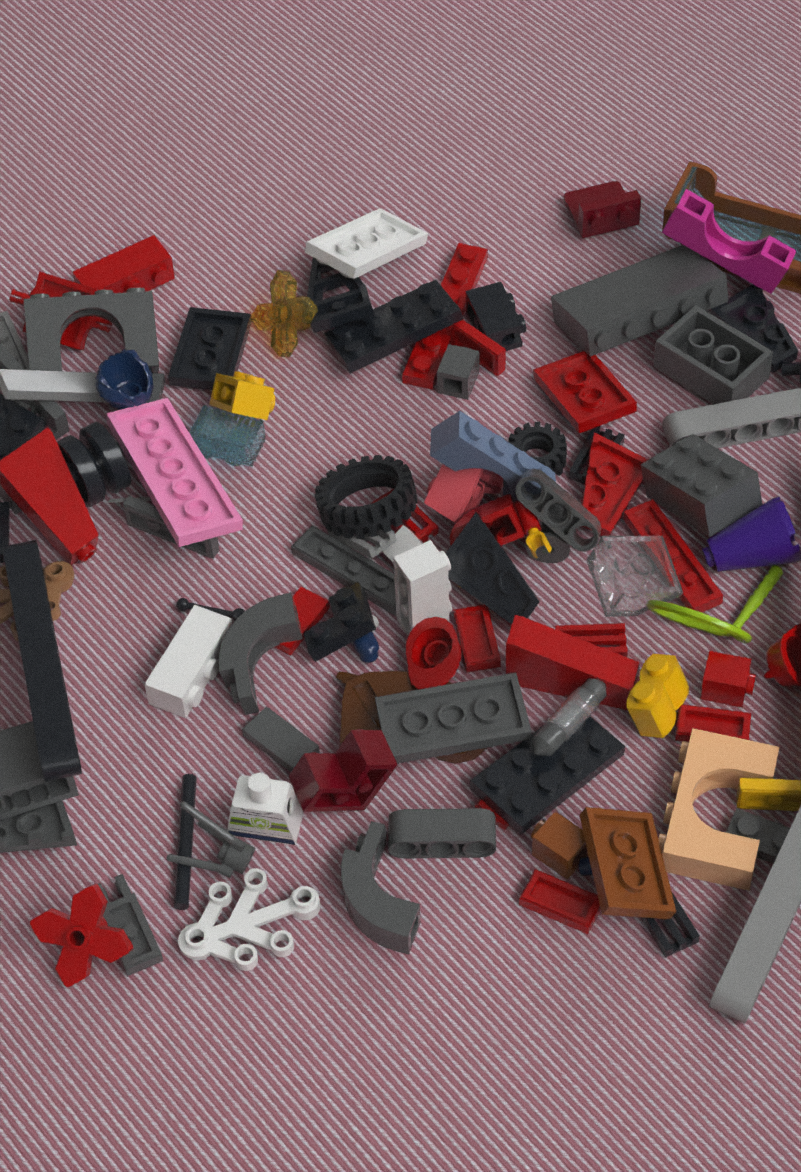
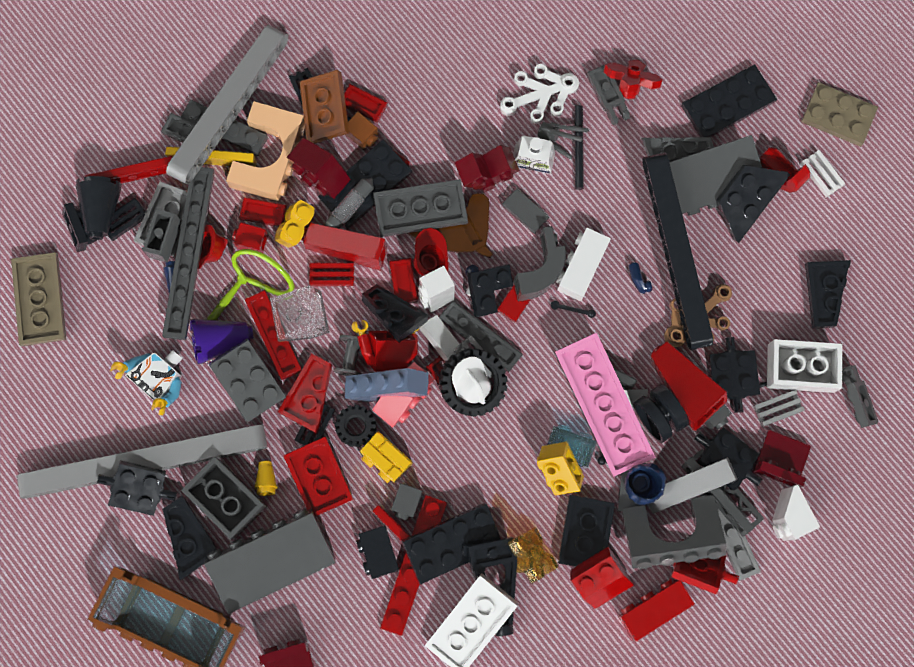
camera: 175 degrees right, 25 degrees up
(107, 648) = (636, 276): none -> dark blue arm
(197, 292) = (600, 578): none -> red slope
(364, 485) = (471, 380): none -> white piece
(376, 913) = (468, 93): dark grey arch -> none
(442, 833) = (429, 142): dark grey beam -> none
(491, 409) = (385, 457): none -> yellow brick
(566, 525) = (345, 350): dark grey beam -> none
(626, 759) = (318, 168): none -> dark red brick
(659, 389) = (265, 479): none -> yellow cone
(758, 261) = (213, 600): dark pink arch -> none

